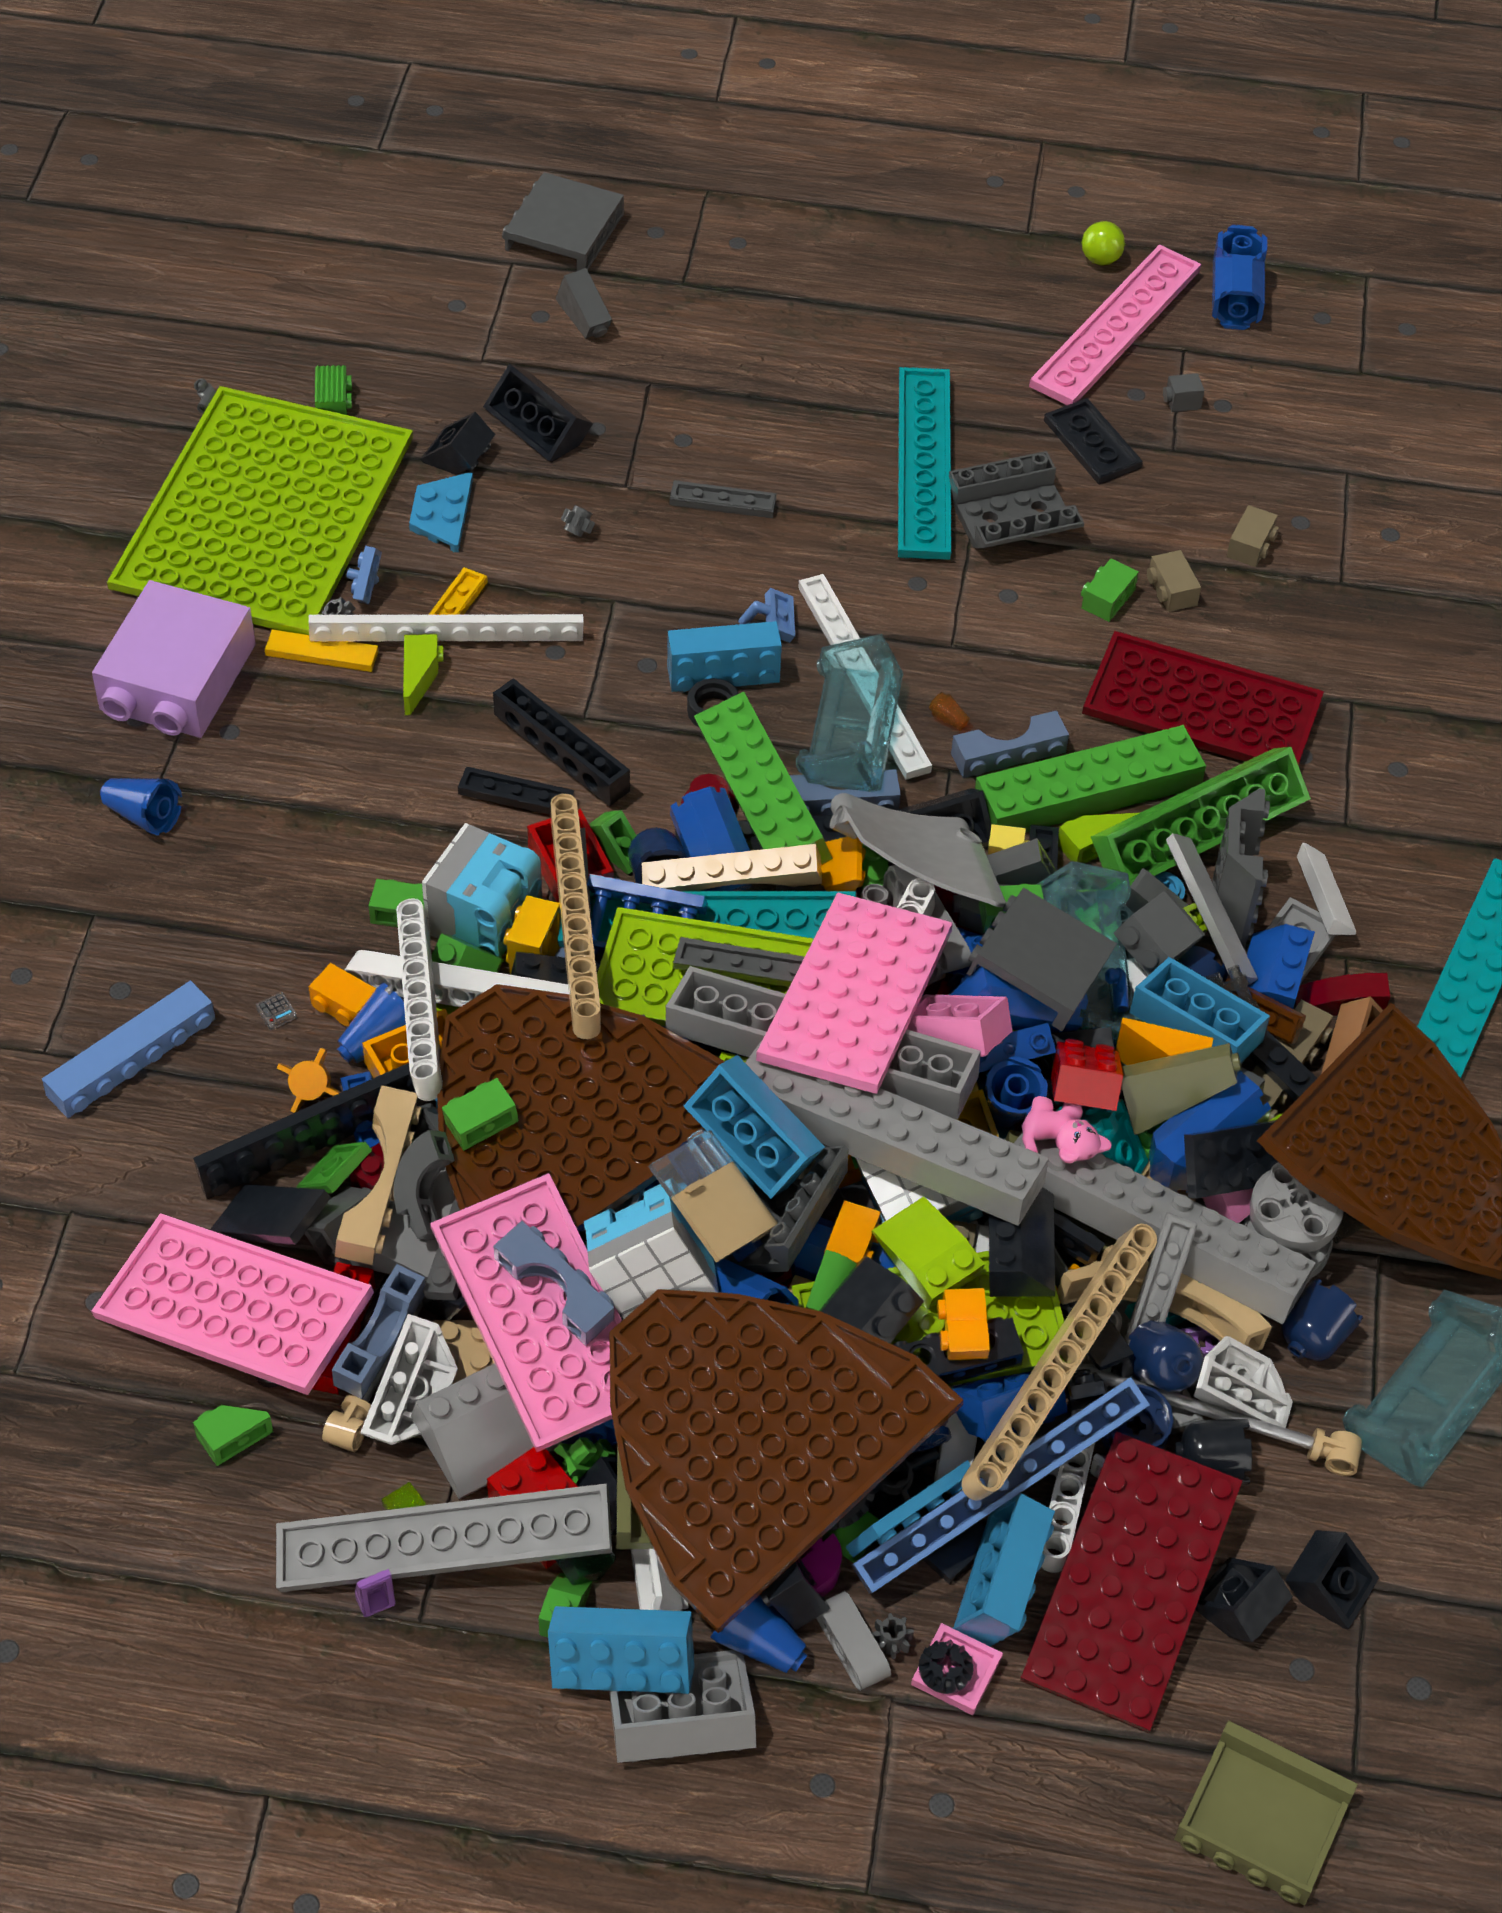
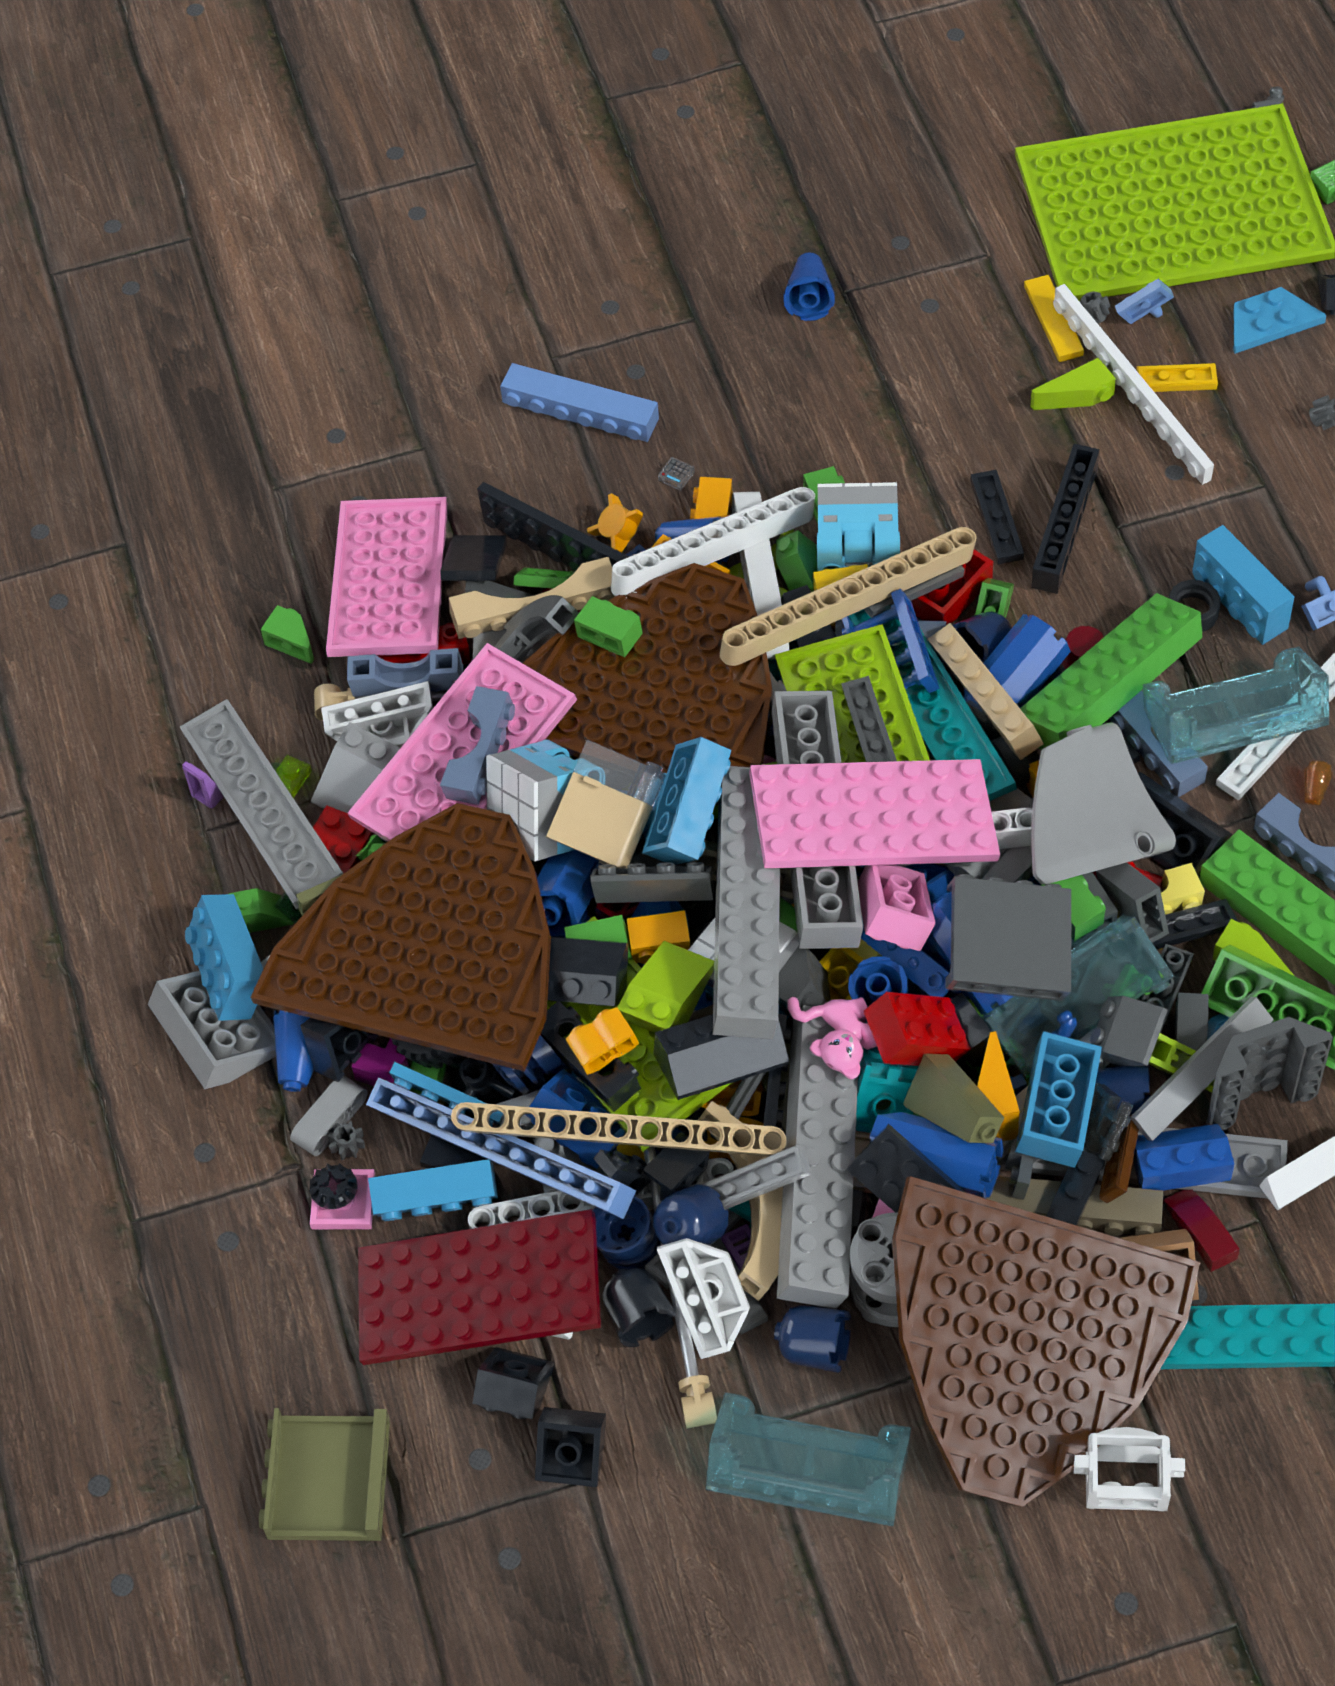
camera: 70 degrees right, 5 degrees up
(174, 659) = (959, 228): lavender brick -> none

